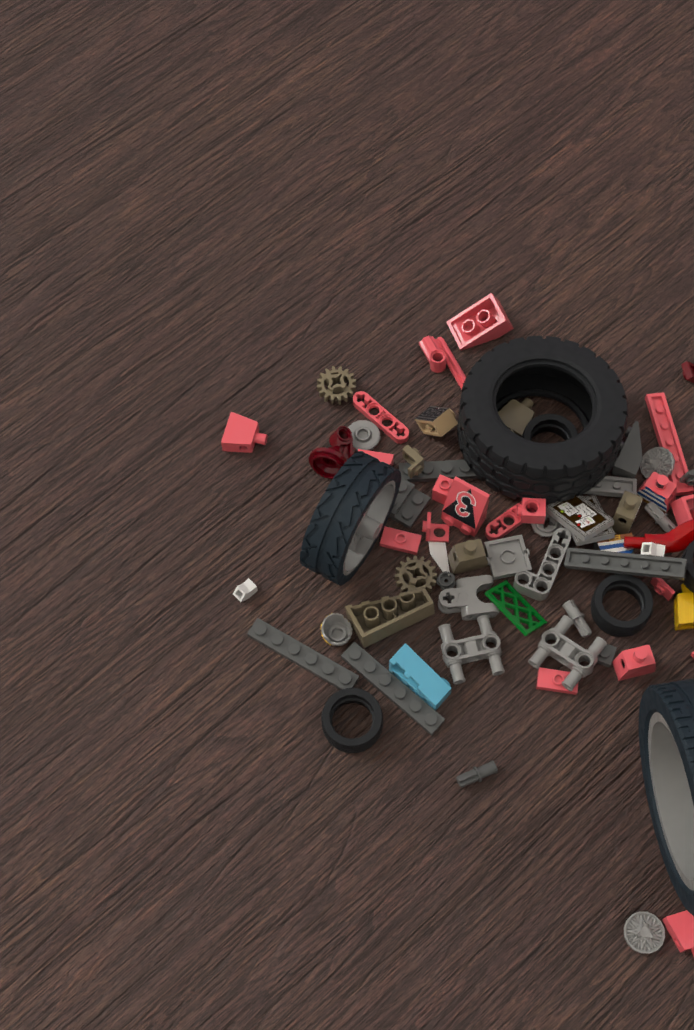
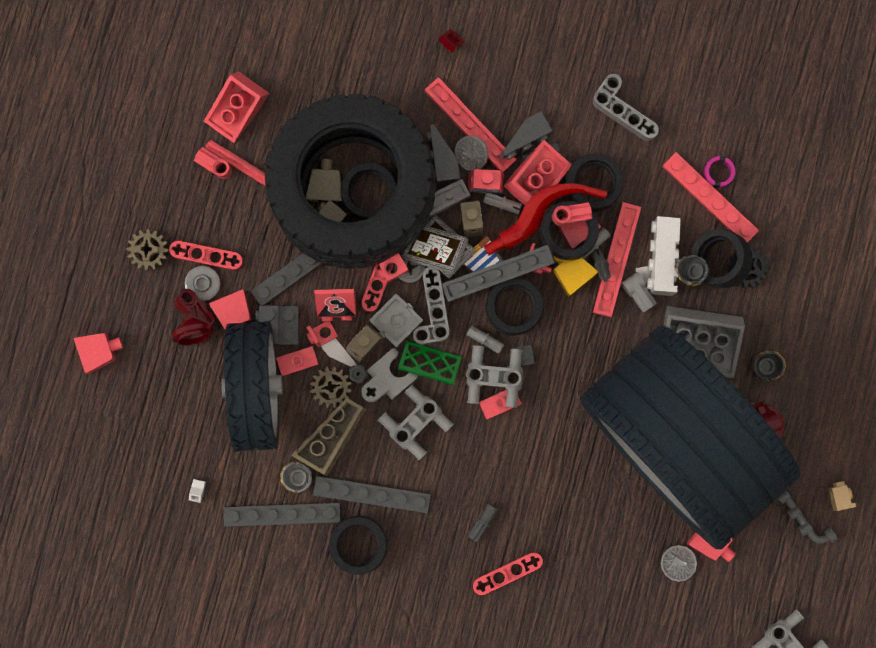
camera: 40 degrees left, 20 degrees up
(415, 459) = (261, 281): dark tan bracket -> none
(419, 677) = (390, 474): medium azure wedge -> none
(436, 421) = (260, 233): tan brick -> none
(441, 489) = (305, 293): coral brick -> none
(471, 839) = (506, 570): none -> coral beam
(637, 662) = (553, 351): coral torso -> none
(653, 549) = (515, 248): white piece -> none

